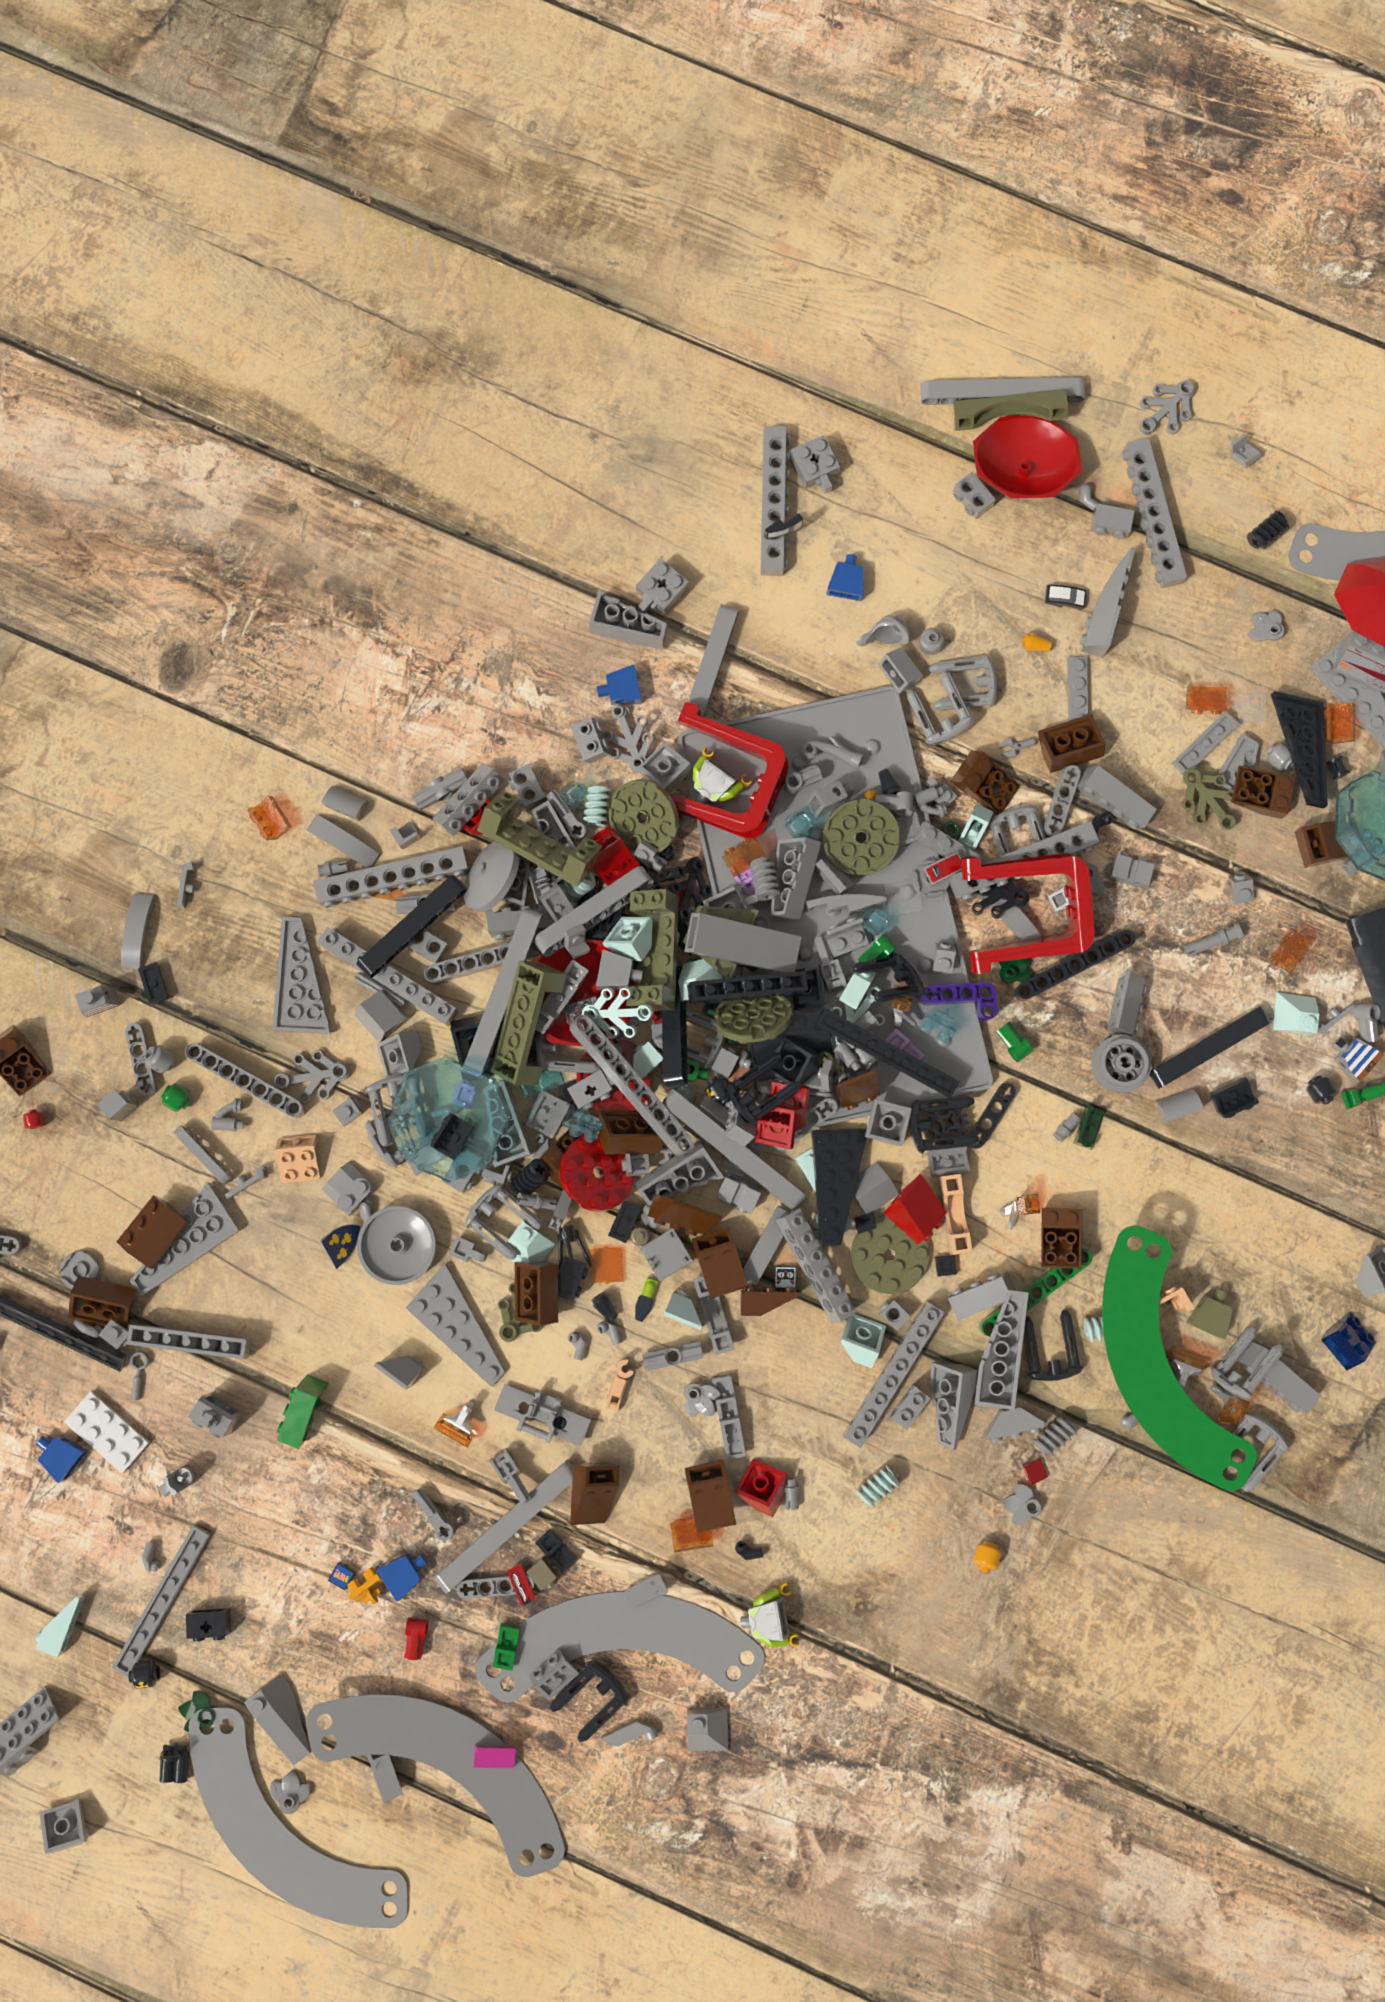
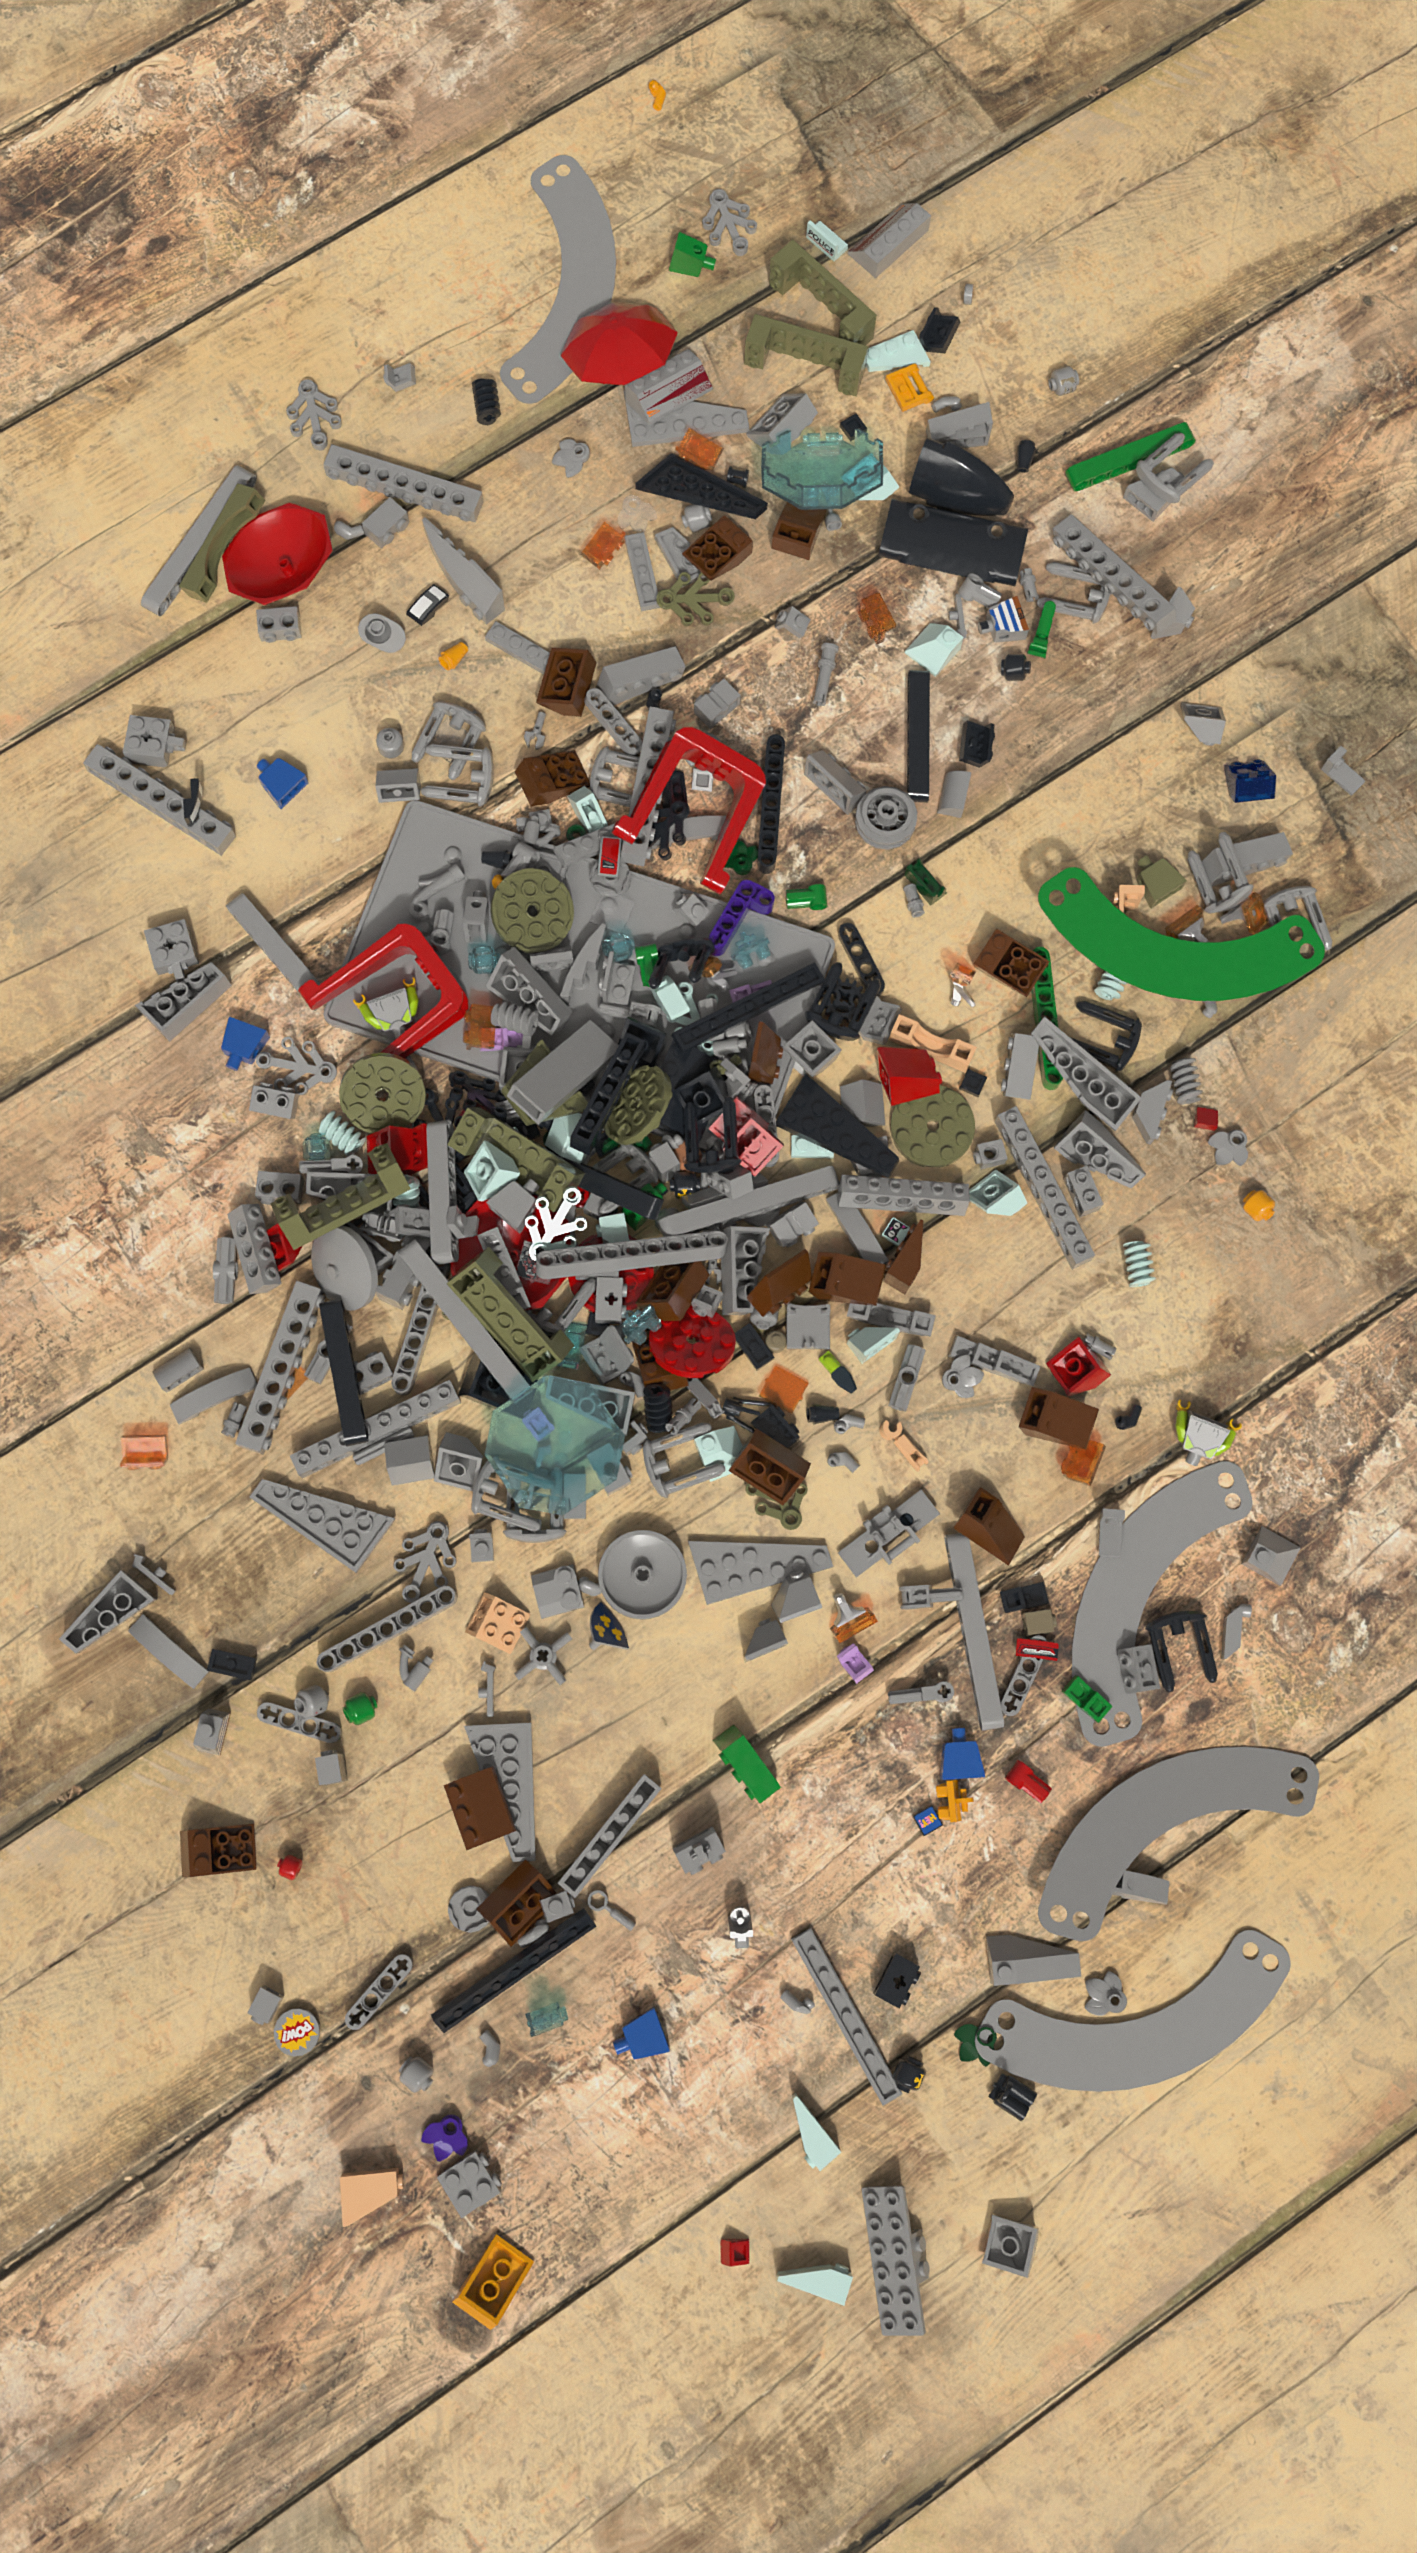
camera: 65 degrees left, 5 degrees down
(30, 1376) = (546, 2018): none -> clear light blue hips
(107, 1432) = (647, 1975): white plate -> none
(144, 872) = (111, 1608): none -> light grey wedge
(202, 1154) = (434, 1715): light grey beam -> none
(285, 1207) = (534, 1655): none -> light grey bar
(406, 835) = (248, 1331): light grey panel -> none
(426, 1448) = (854, 1663): none -> lavender bracket
(447, 1373) = (795, 1597): none -> light grey slope
(451, 1136) = (572, 1454): black bracket -> none
(464, 1250) = (686, 1515): light grey plate -> none
(494, 1756) = (1183, 1770): dark pink panel -> none
(648, 855) = (420, 1113): light grey plate -> none
(665, 767) = (346, 1045): light grey slope -> none
(865, 1222) = (891, 1127): black tile -> none
(888, 630) = (354, 773): light grey piece -> none
(1018, 577) = (381, 632): none -> light grey piece
(1036, 884) = (674, 790): none -> black slope

